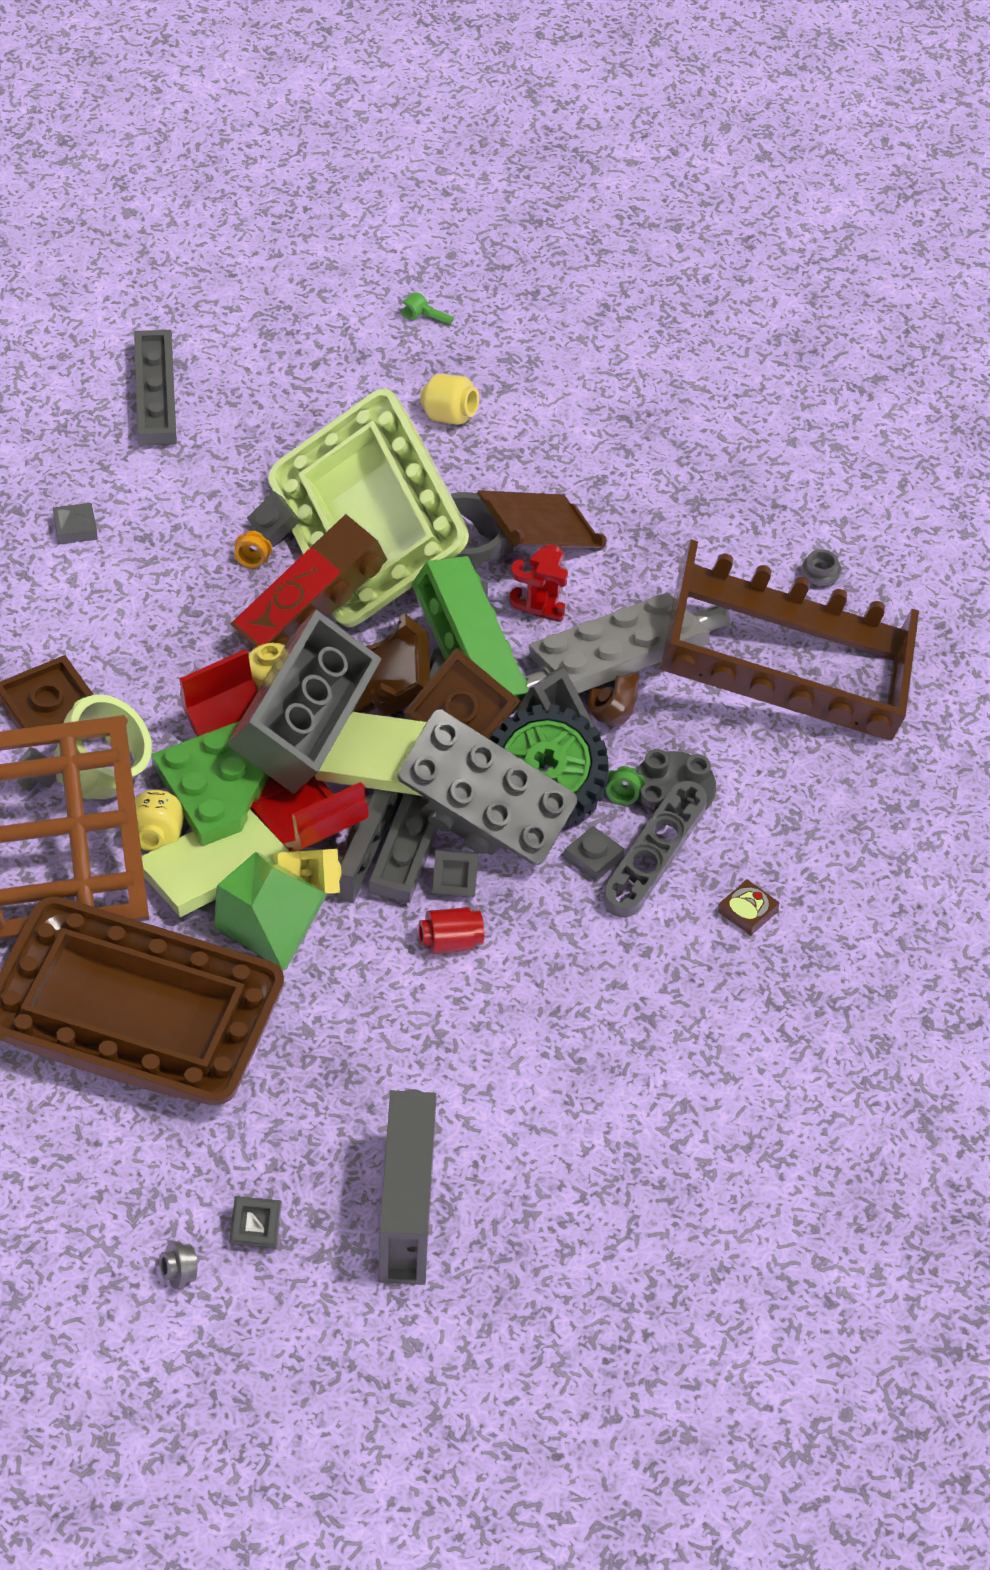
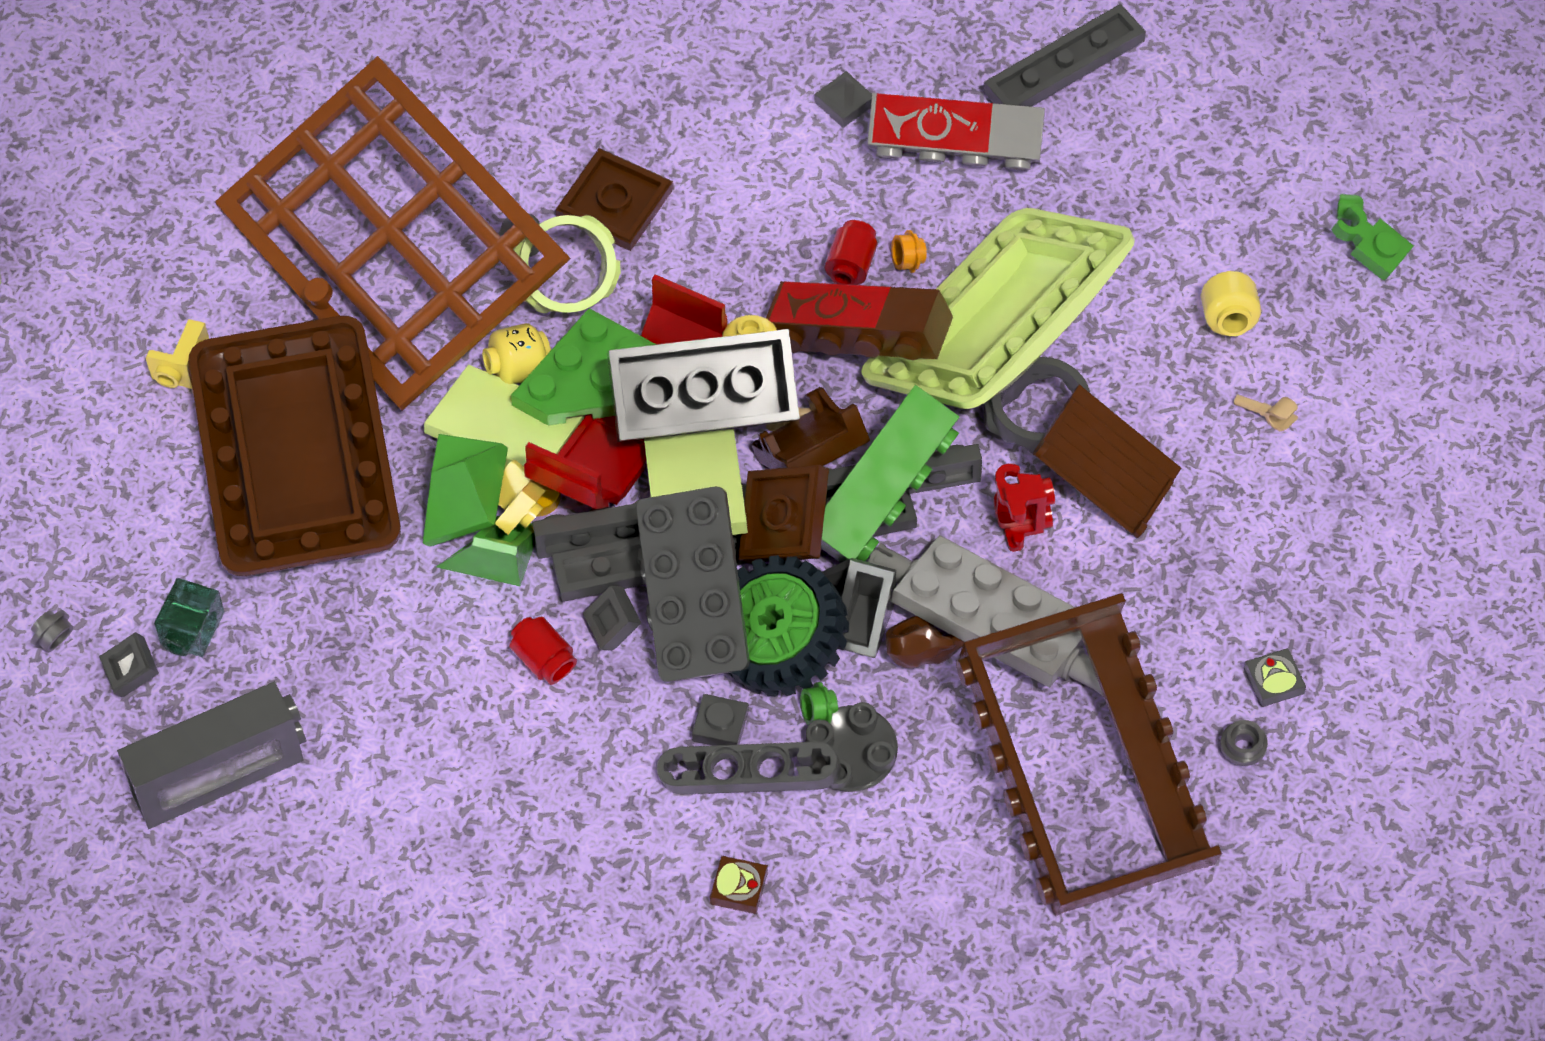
camera: 65 degrees right, 10 degrees up
(169, 466) = (956, 129): none -> brick
(229, 579) = (851, 253): none -> red brick
(244, 1155) = (189, 618): none -> clear green brick
(273, 518) = (956, 246): dark grey plate -> none
(338, 922) = (495, 554): none -> bright green slope
(460, 306) = (1377, 247): none -> bright green plate
(559, 424) = (1278, 416): none -> tan hand
(777, 529) = (1275, 677): none -> tile

